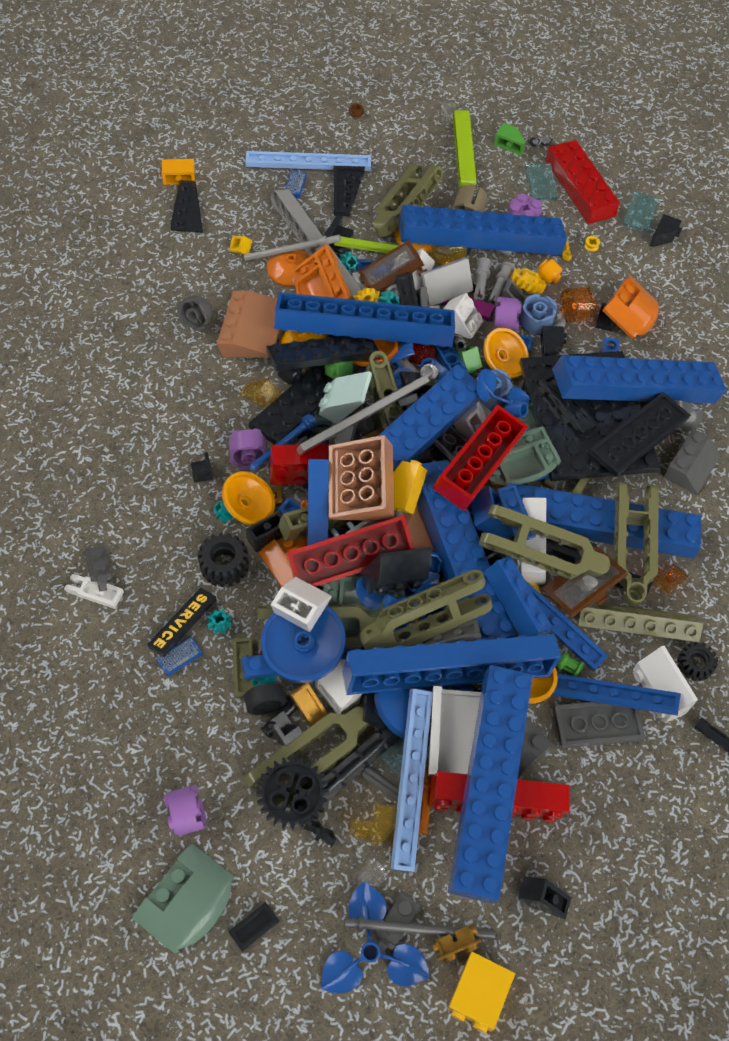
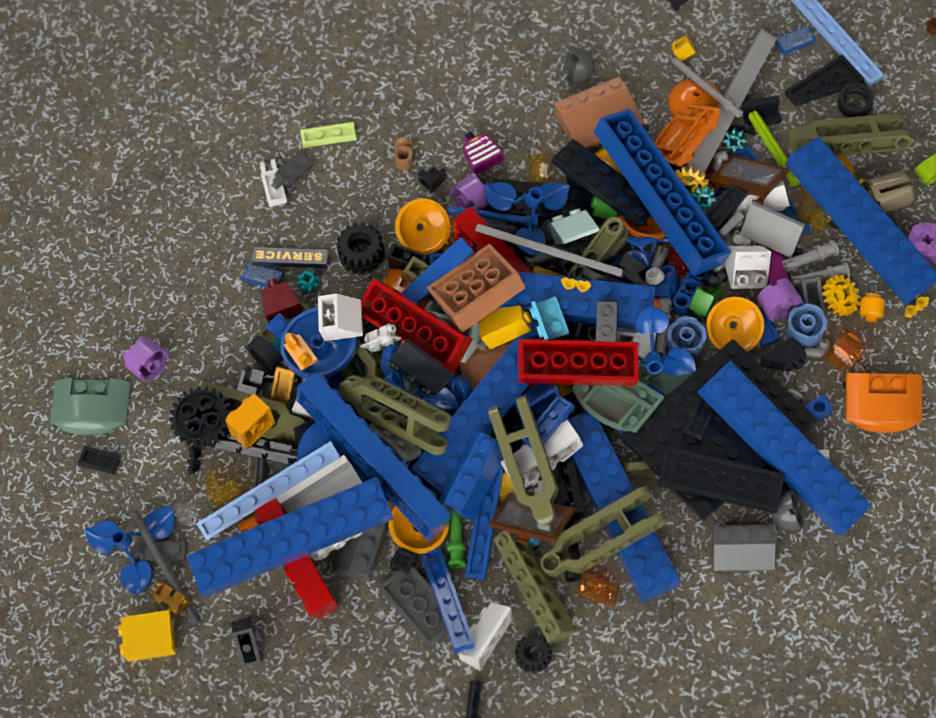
camera: 65 degrees right, 5 degrees up
(86, 520) = (328, 134): none -> yellowish green tile
(157, 471) = (403, 149): none -> medium nougat piece
(211, 421) = (481, 153): none -> magenta torso
(222, 655) = (279, 299): none -> dark red torso
(301, 398) = (503, 195): none -> blue plant
(303, 659) = (299, 350): none -> light orange hinge
(336, 748) = (250, 421): none -> light orange brick
(346, 578) = (380, 338): none -> white hinge
(376, 190) = (855, 88): none -> black tyre
(418, 409) = (570, 284): none -> yellow piece
(431, 449) = (550, 319): none -> medium azure bracket
(465, 410) = (607, 320): none -> brick
(552, 710) = (402, 561): none -> black panel

